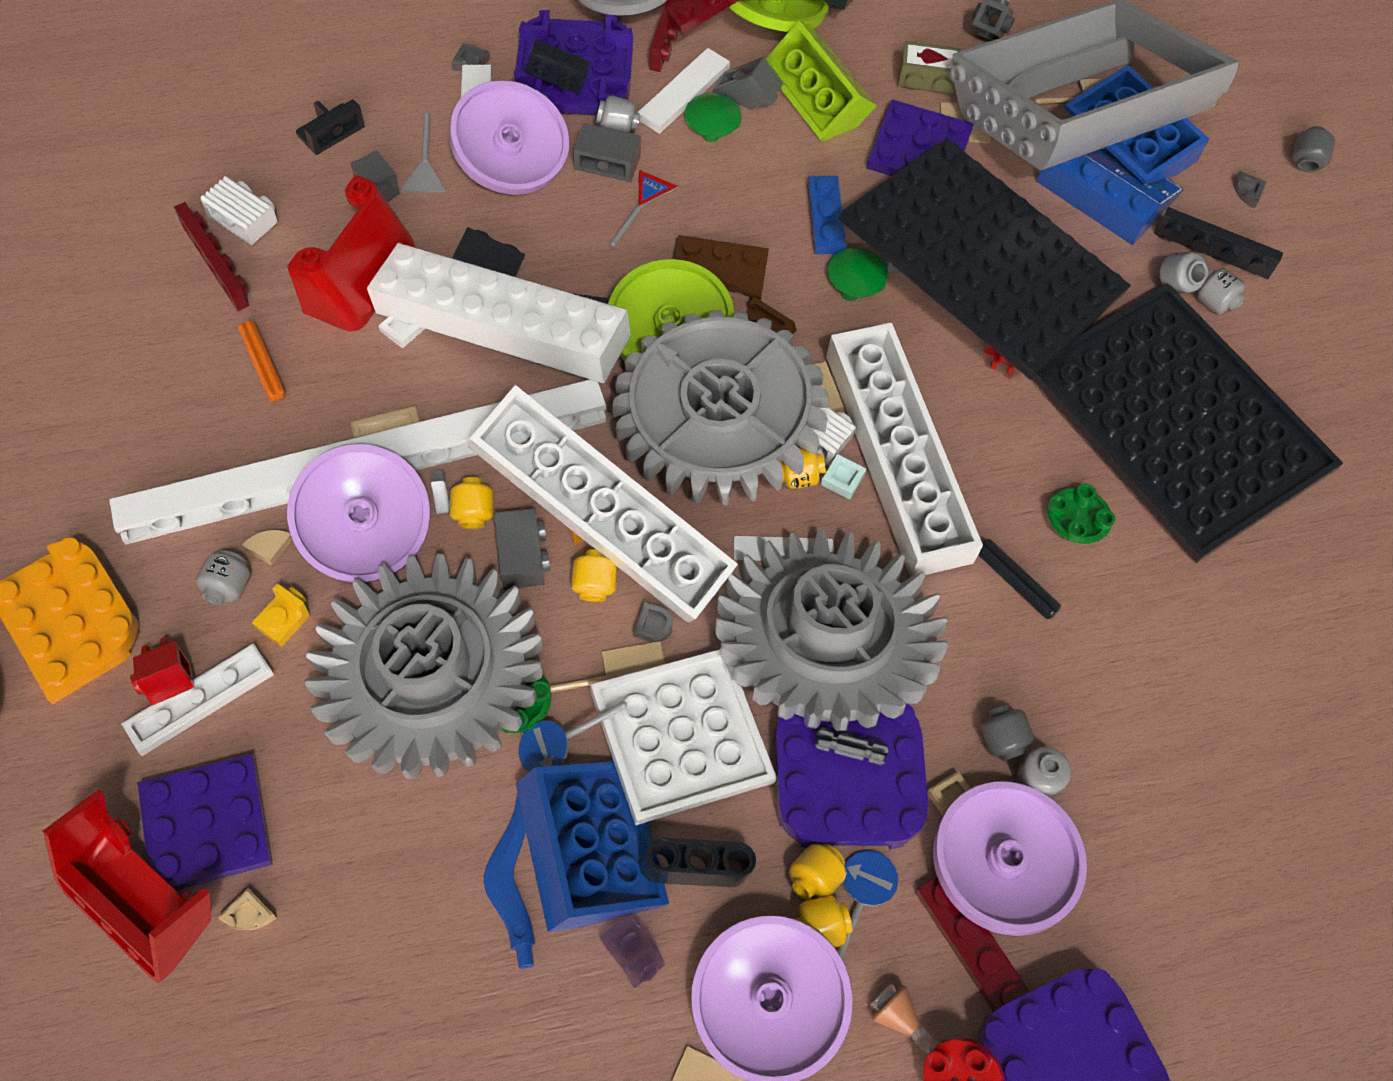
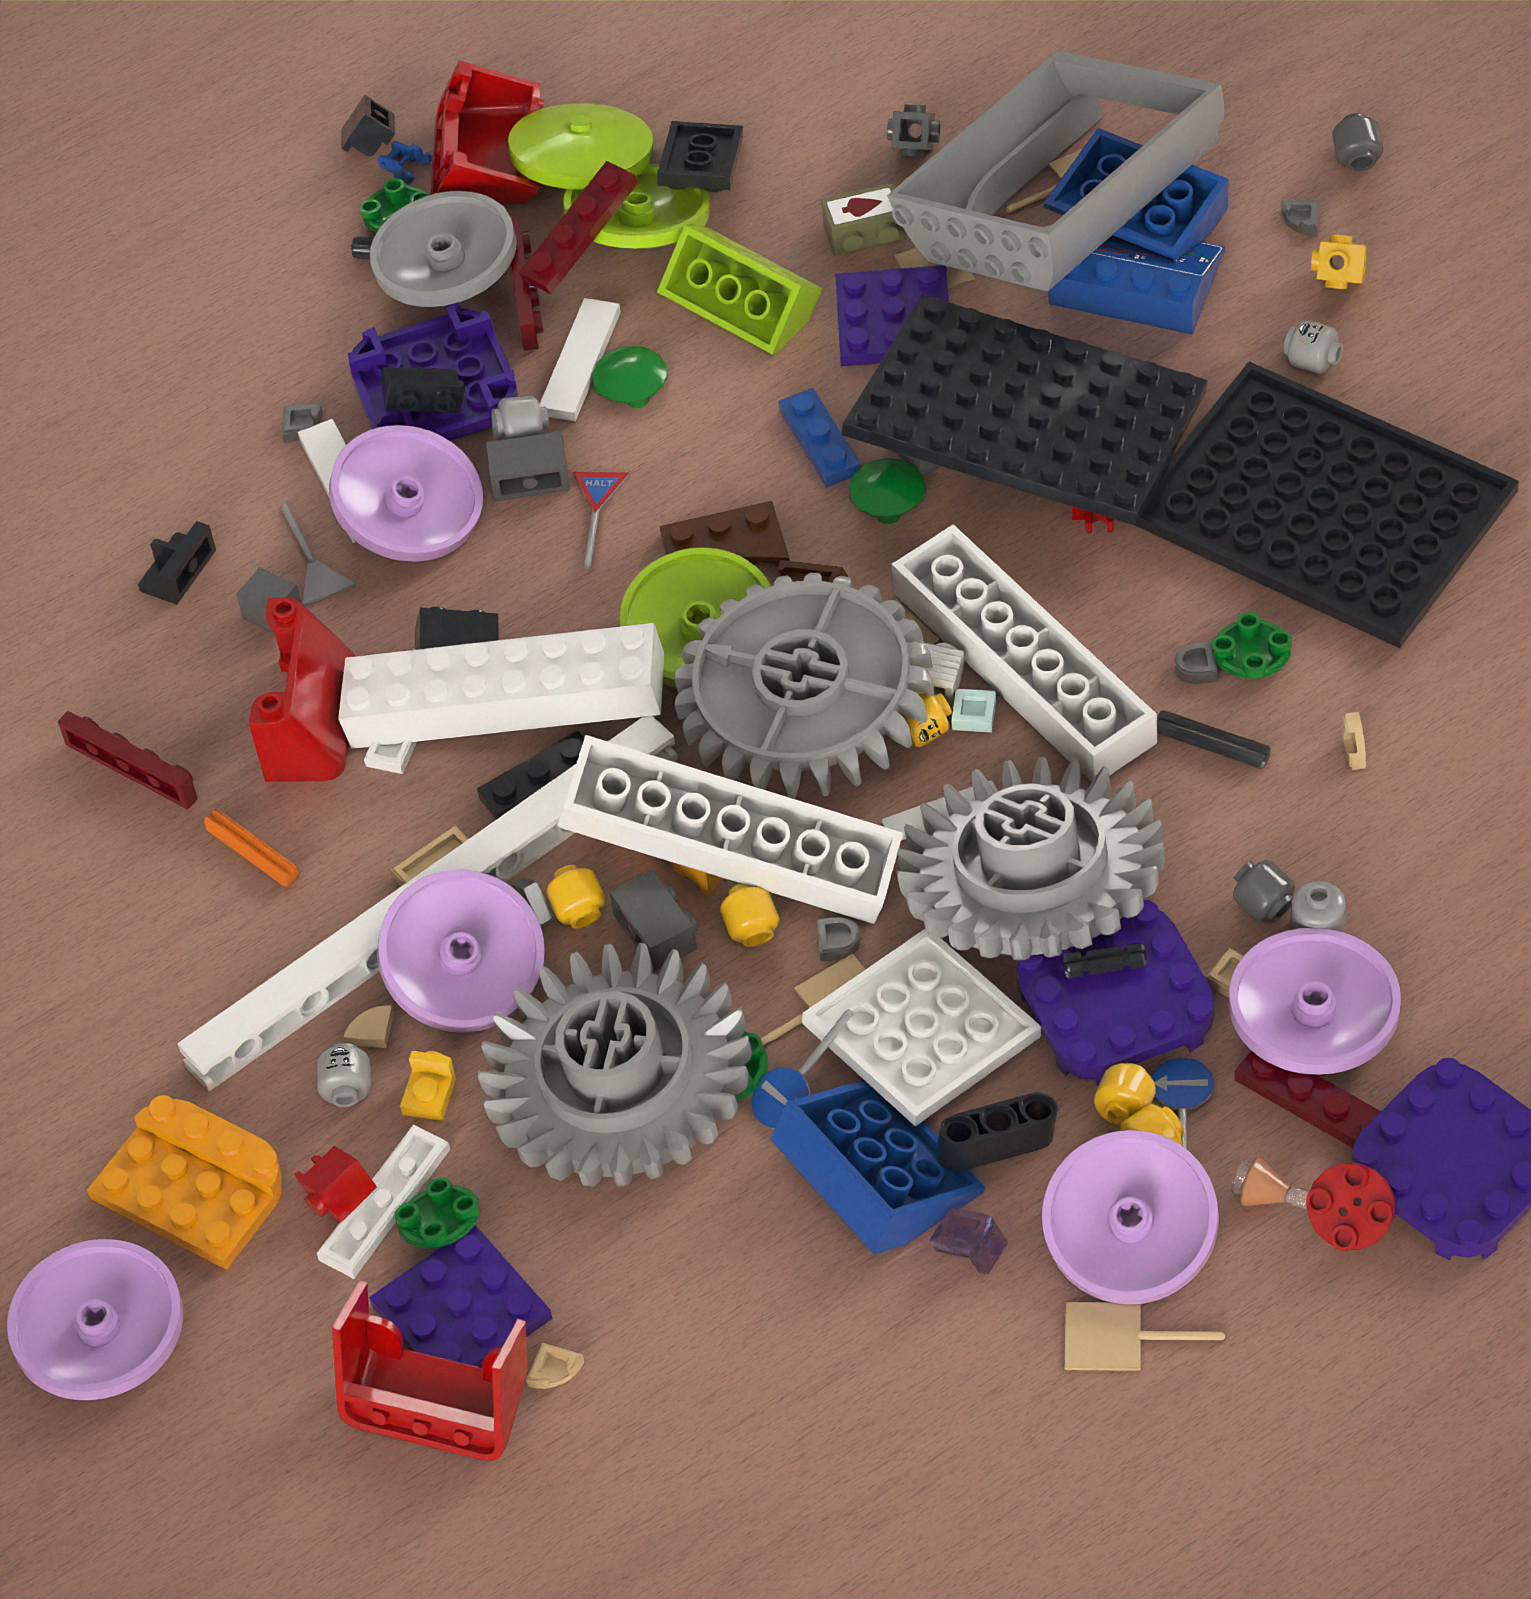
camera: 10 degrees left, 10 degrees down
(228, 733) = (438, 1215): none -> green dish
(239, 210) = (130, 697): white brick -> none
(490, 390) = (531, 775): none -> black plate
(503, 891) = (806, 1244): blue piece -> none
(750, 84) = (658, 322): dark grey slope -> none
(1031, 509) = (1196, 663): none -> flat silver tile
(1130, 629) = (1354, 741): none -> tan tile
(1184, 271) = (1261, 341): light grey head -> none
(1219, 243) = (1288, 293): black plate -> none
(1274, 221) = (1354, 261): none -> yellow brick

